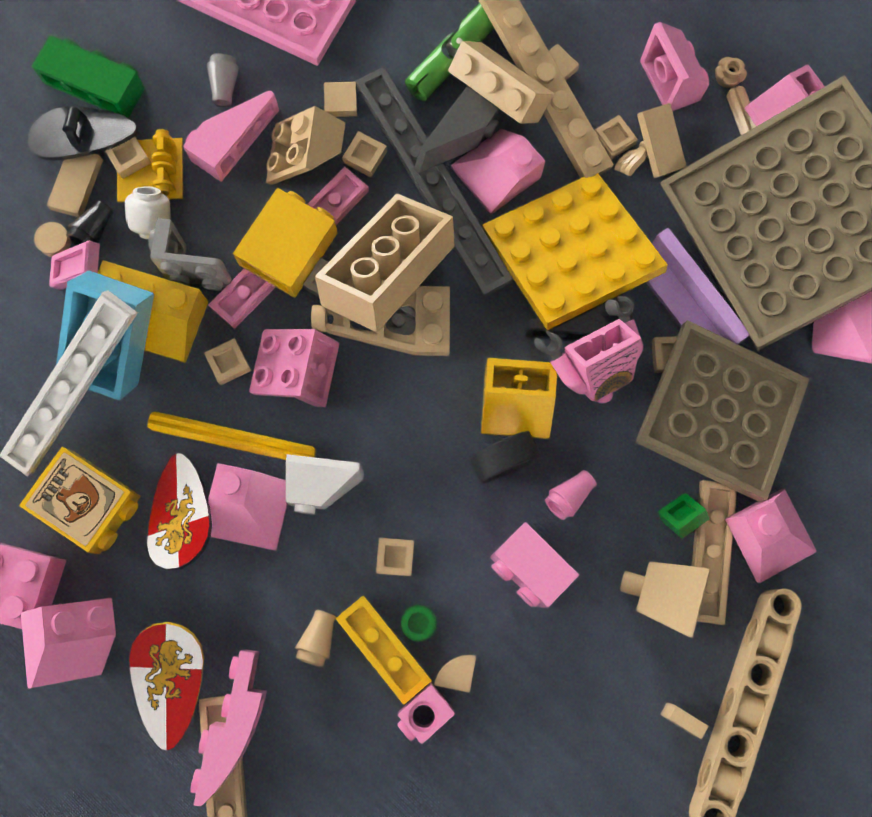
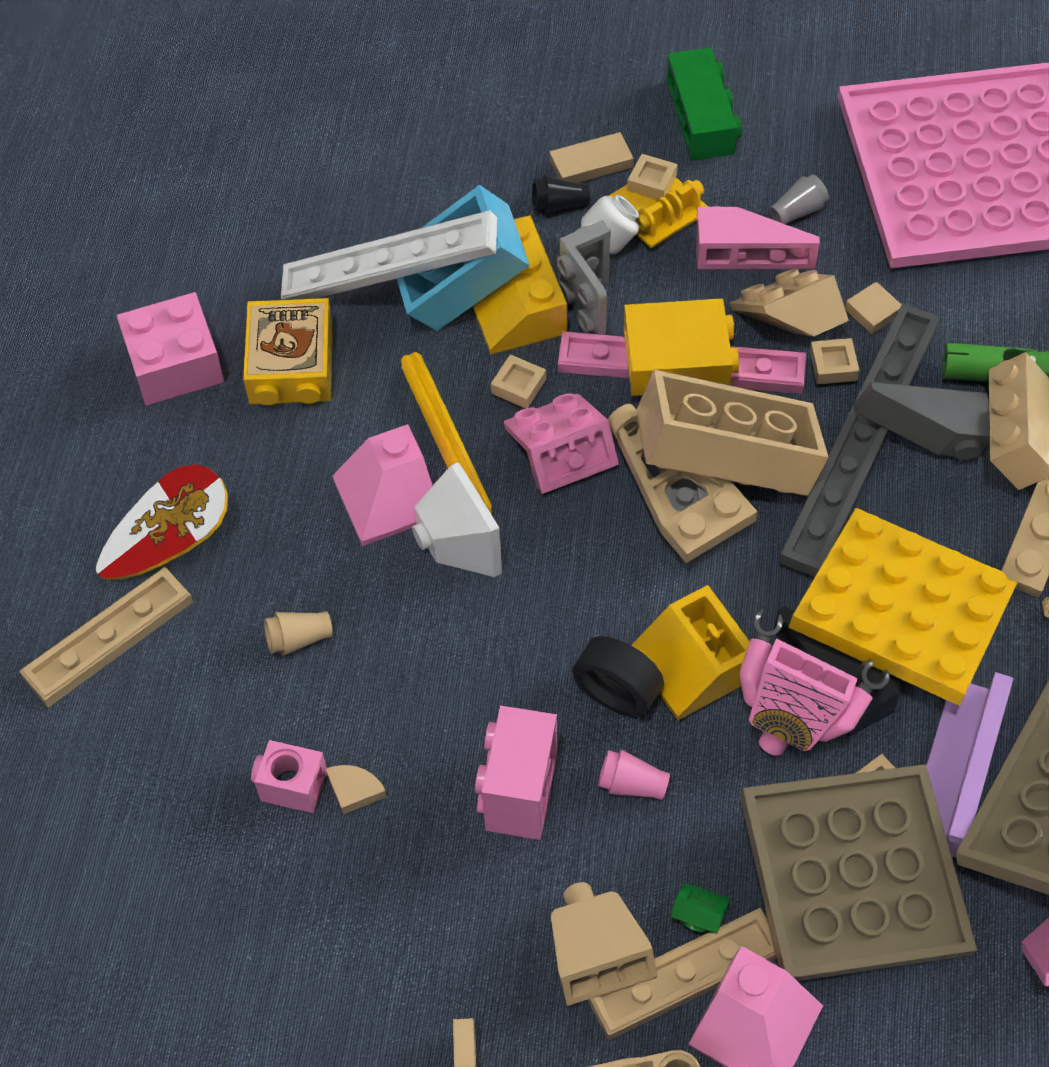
camera: 60 degrees right, 20 degrees down
(51, 239) = (519, 177): tan tile -> none
(67, 641) = (148, 416): bright pink slope -> none
(73, 263) = (519, 199): bright pink tile -> none
(78, 132) = (640, 129): shield -> none
(179, 516) = (333, 432): shield -> none
(227, 742) = (141, 611): bright pink slope -> none
(383, 649) = (331, 694): yellow plate -> none
(395, 557) = (434, 652): tan tile -> none
(418, 623) = (381, 718): green tile -> none
(500, 169) = (931, 491): bright pink slope -> none

